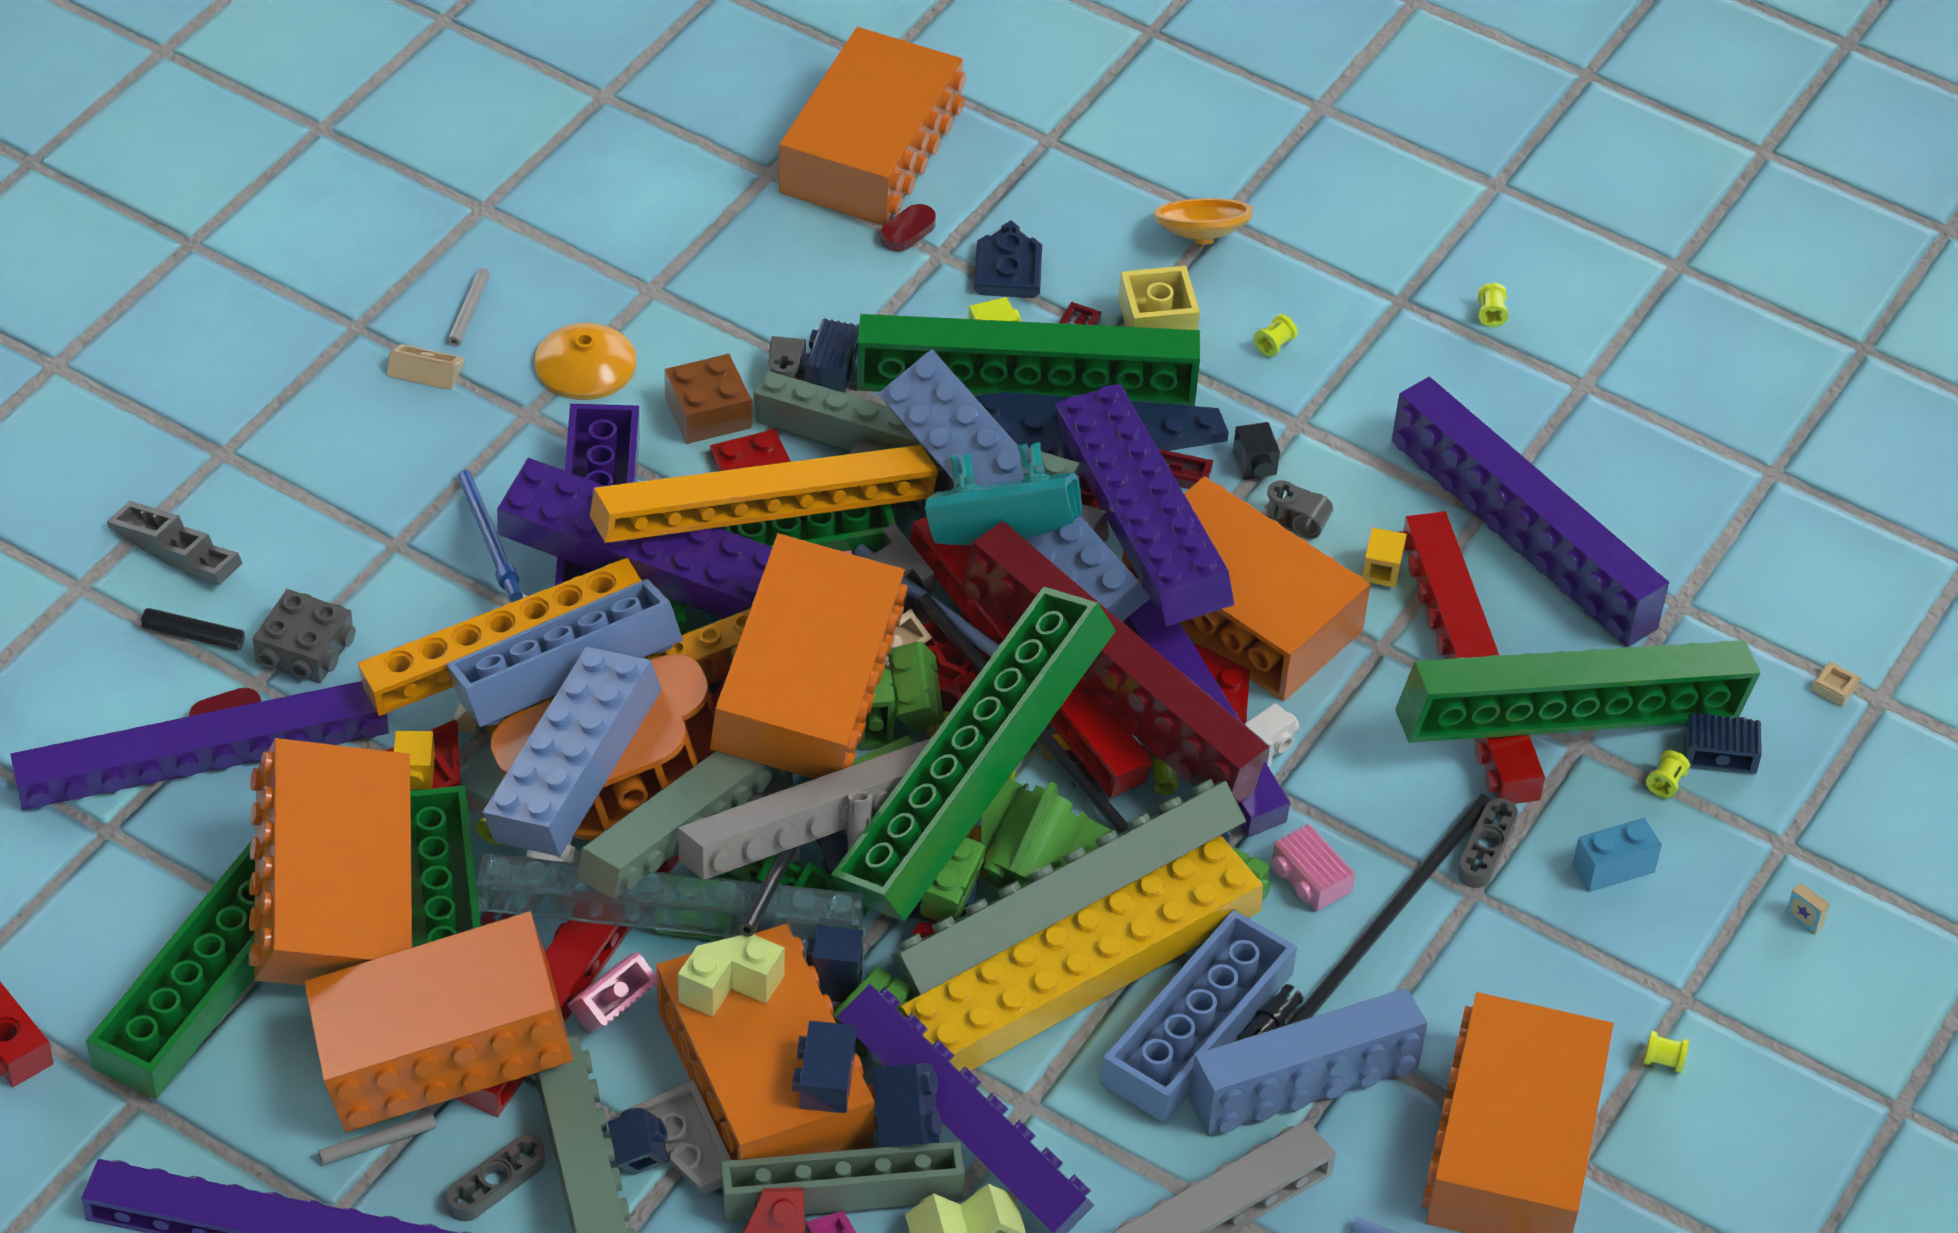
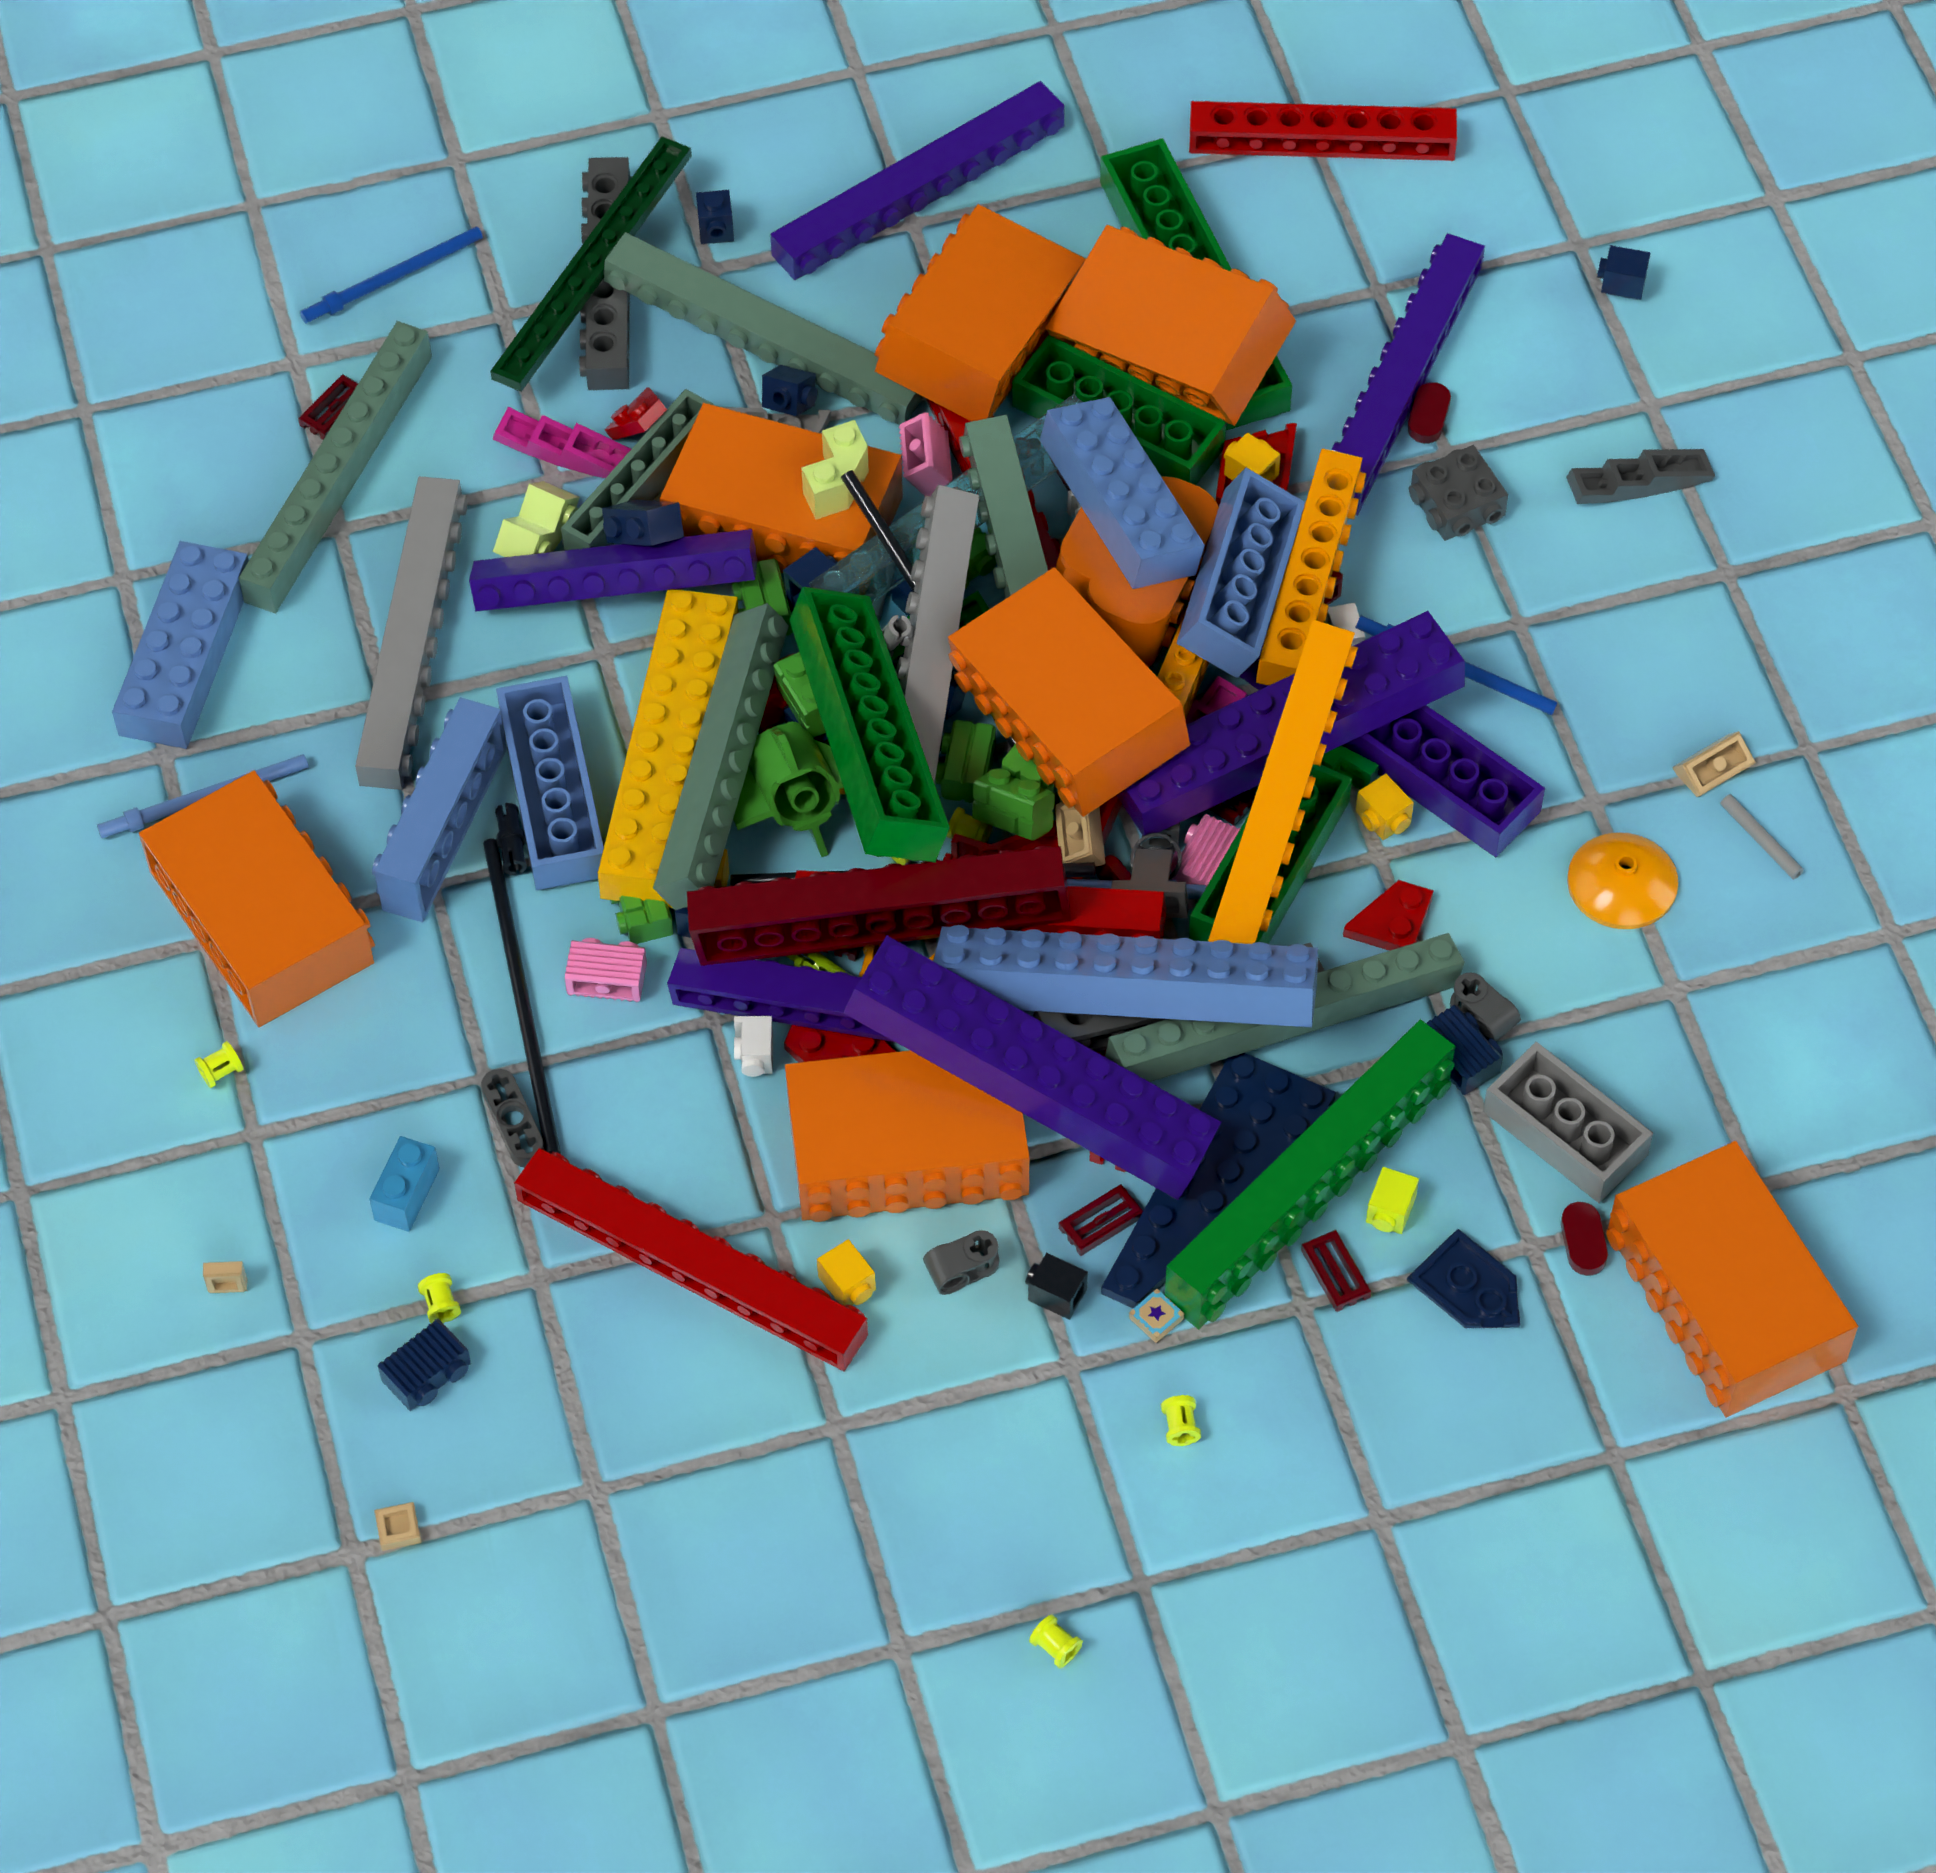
camera: 135 degrees right, 10 degrees up
(193, 629) = (1534, 439): black axle -> none
(490, 1194) = (856, 305): dark grey beam -> none
(708, 398) = (1487, 917): dark orange brick -> none
(826, 1066) = (704, 473): dark blue brick -> none
(835, 263) = (1567, 1122): none -> light grey brick
(1027, 505) = (1092, 912): teal piece -> none
(1158, 299) = (1291, 1338): light yellow brick -> none
(1203, 218) = (1394, 1467): light orange dish -> none
(1214, 395) = (1156, 1315): none -> tan tile
(1529, 512) = (783, 1419): dark purple brick -> none
(1574, 690) = (551, 1252): green brick -> none

